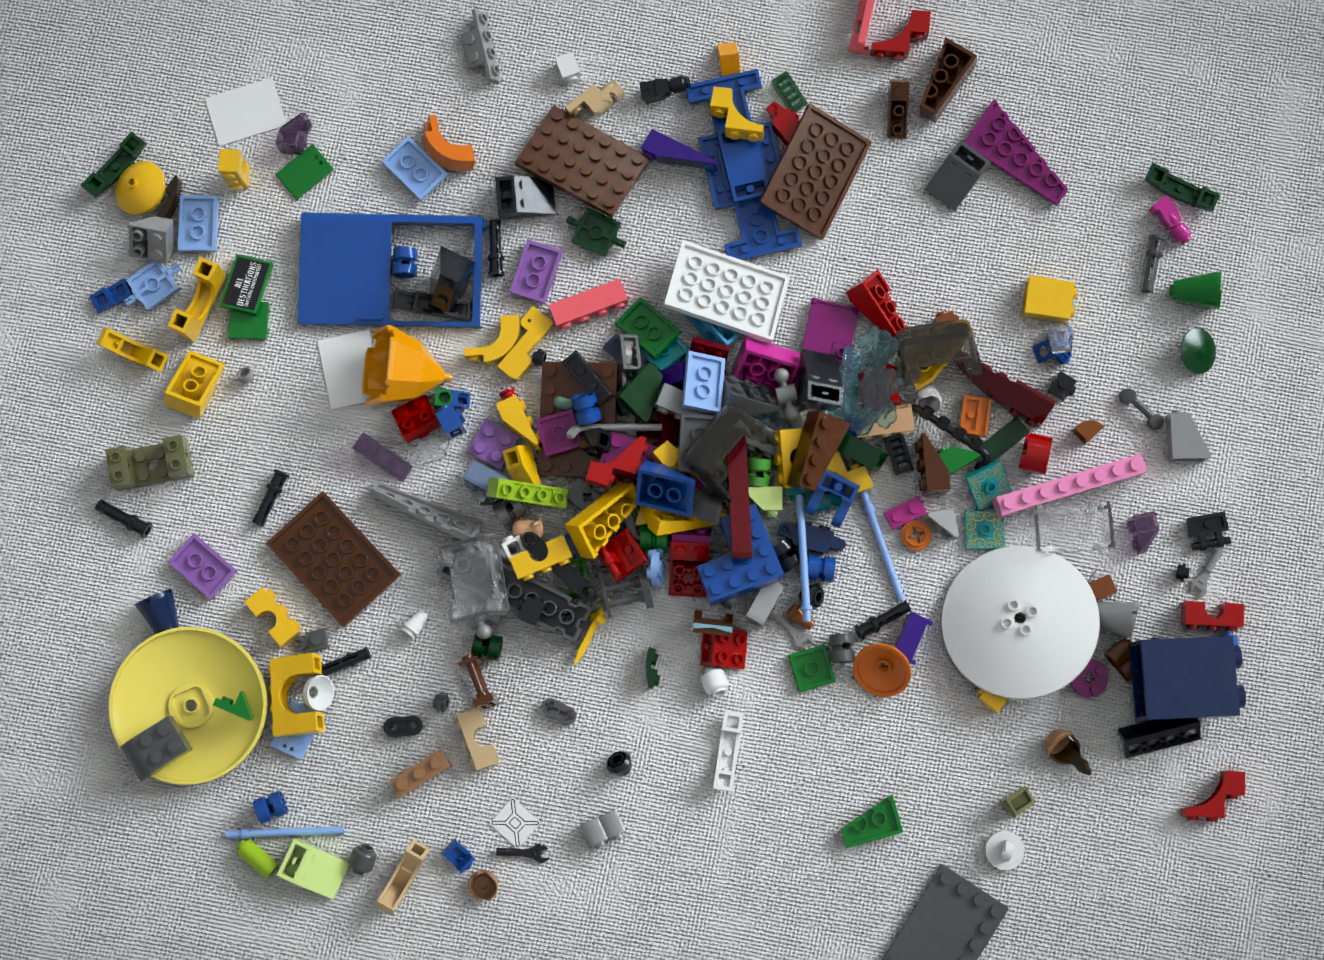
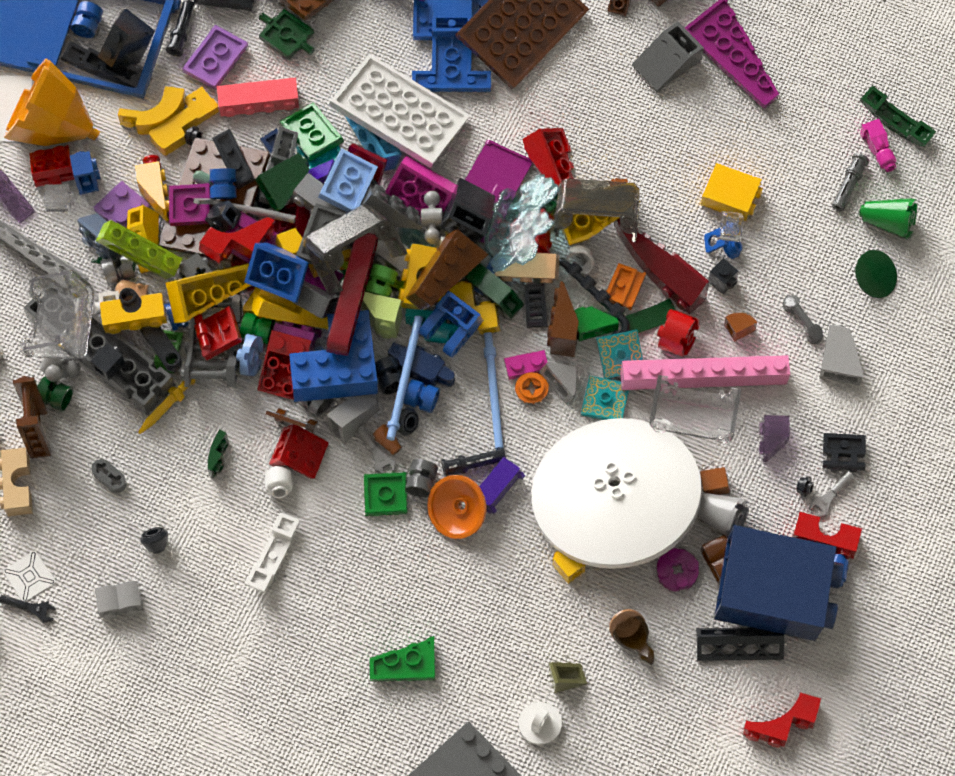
camera: 15 degrees right, 15 degrees down
(457, 398) = (102, 154): leg -> none

